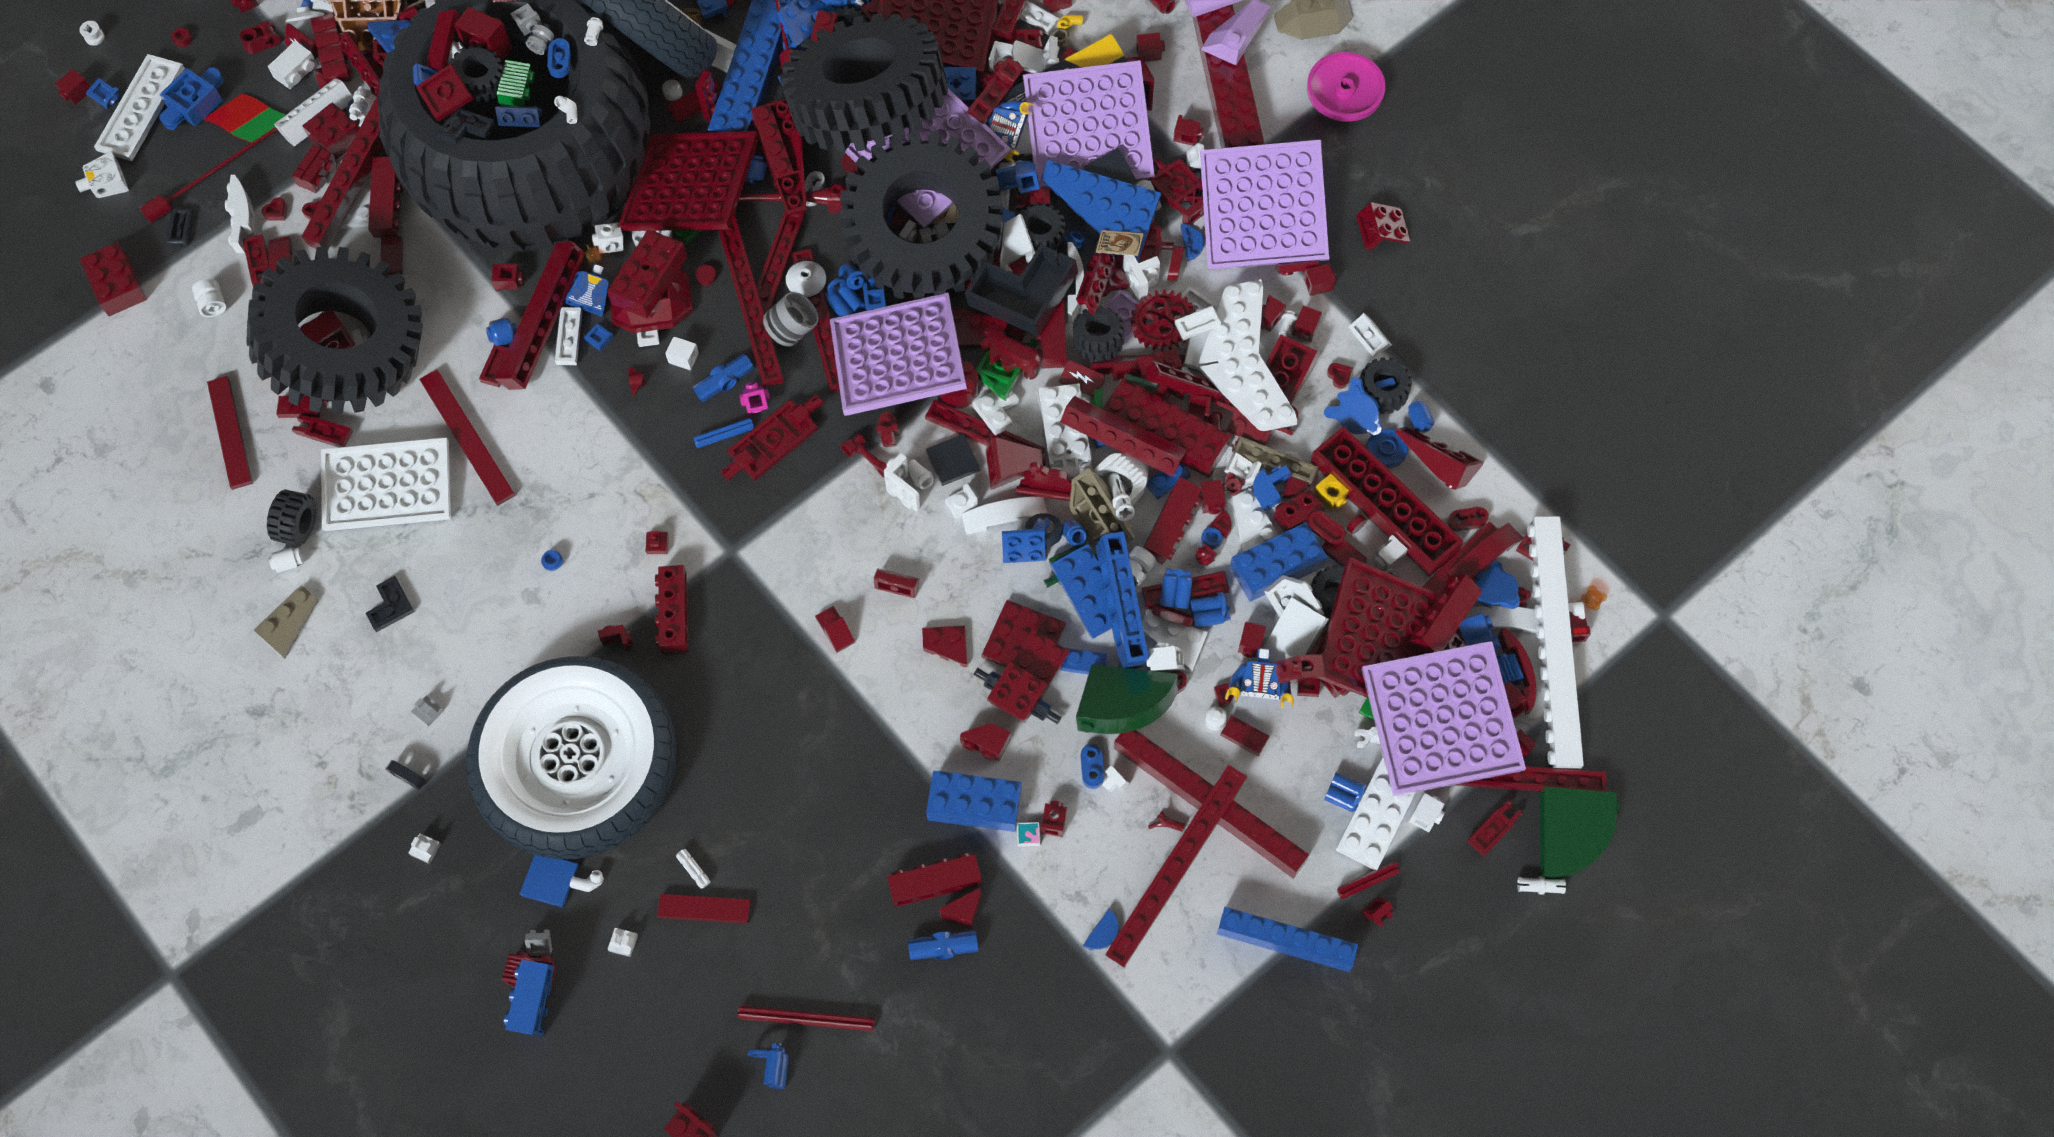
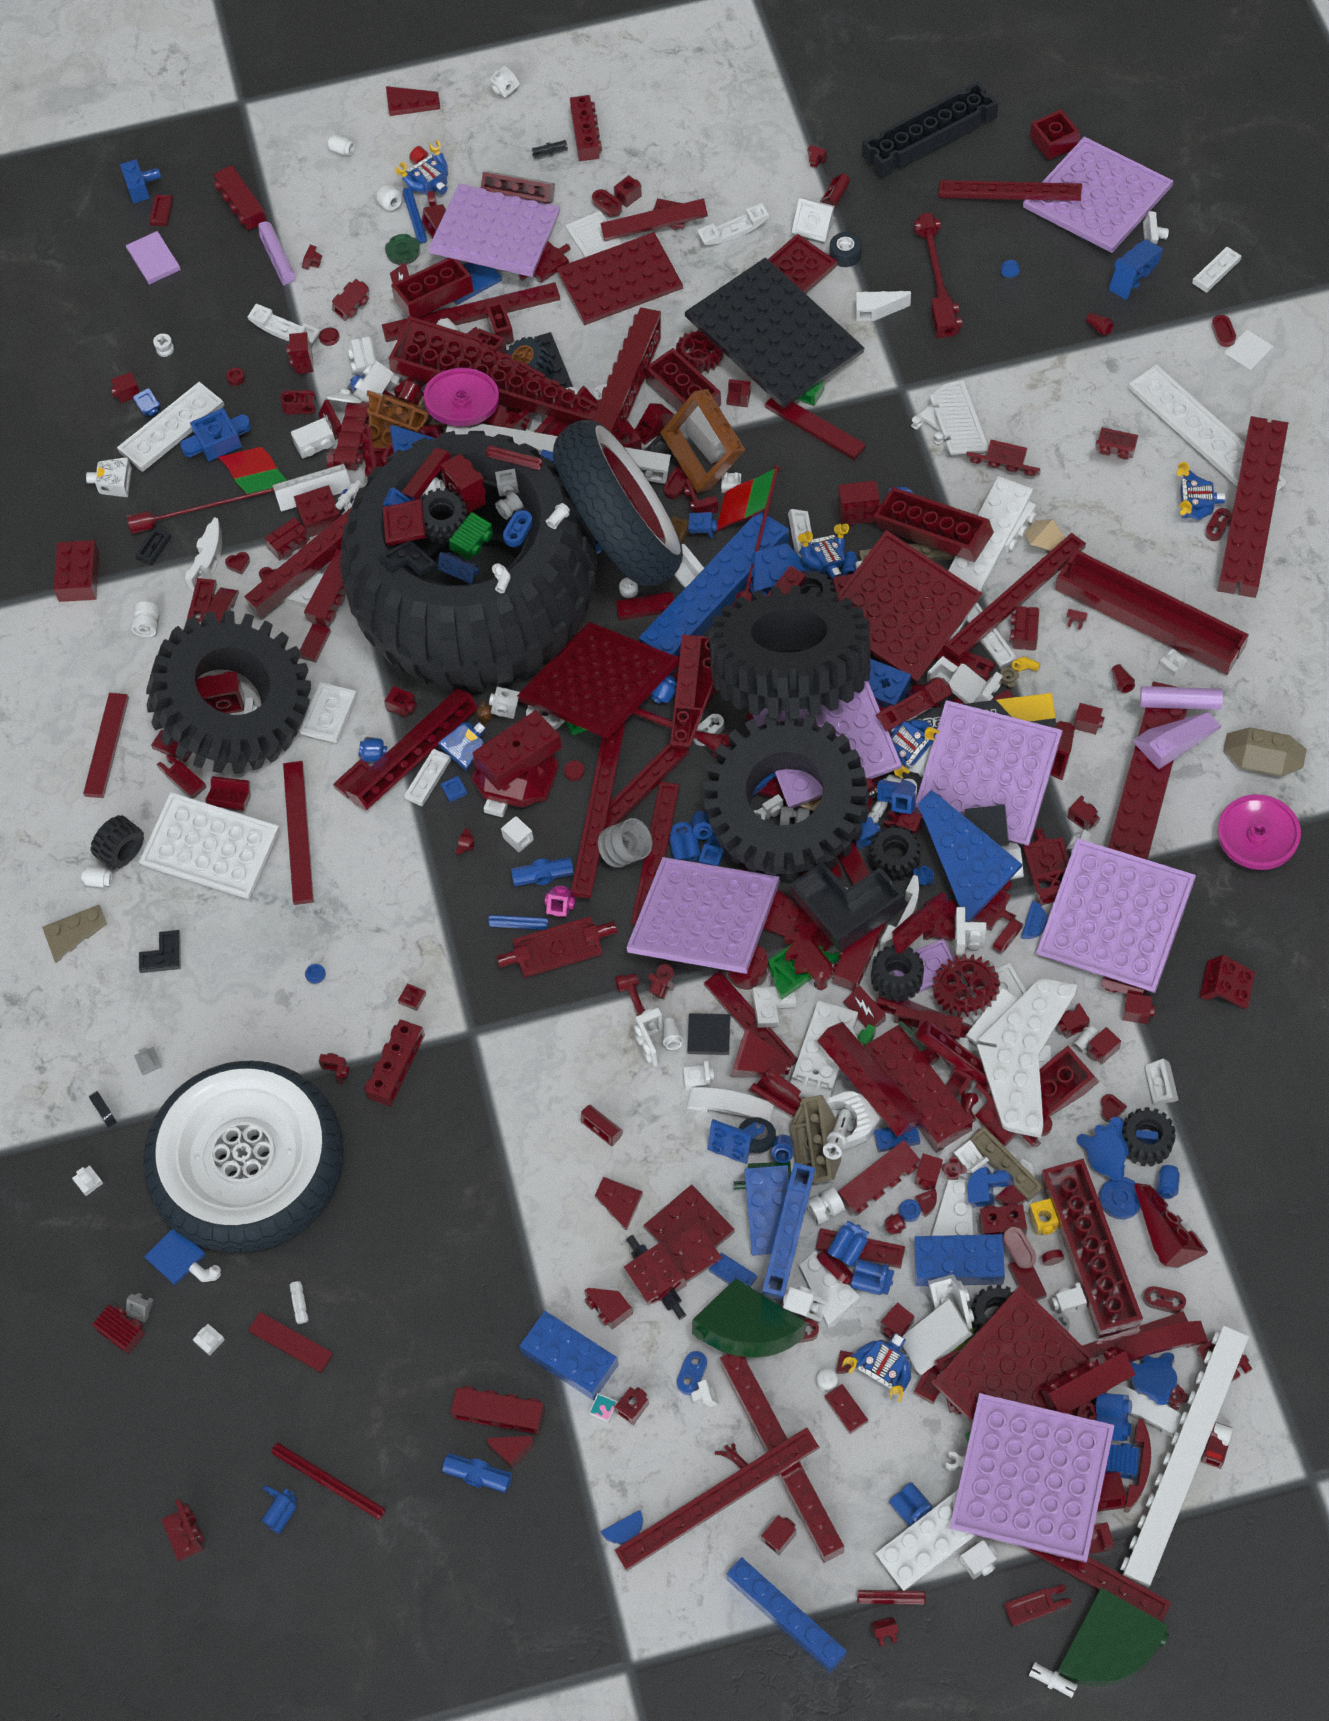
camera: 30 degrees right, 5 degrees down
(379, 427) = (229, 793): none -> dark red bracket
(440, 314) = (328, 712): none -> white plate
(529, 998) = (104, 1351): blue wedge -> none
(706, 94) = (652, 604): dark red plate -> none
(807, 285) = (662, 817): white dish -> none
(835, 629) = (526, 1143): dark red slope -> none
(1015, 242) = (863, 857): white flag -> none
(1119, 242) = (958, 895): tan sticker -> none
(1197, 322) = (993, 1001): white tile -> none
(1244, 872) = (779, 1534): none -> dark red brick
(1292, 670) = (919, 1368): dark red brick -> none
(1593, 603) = (1246, 1436): clear orange plate -> none

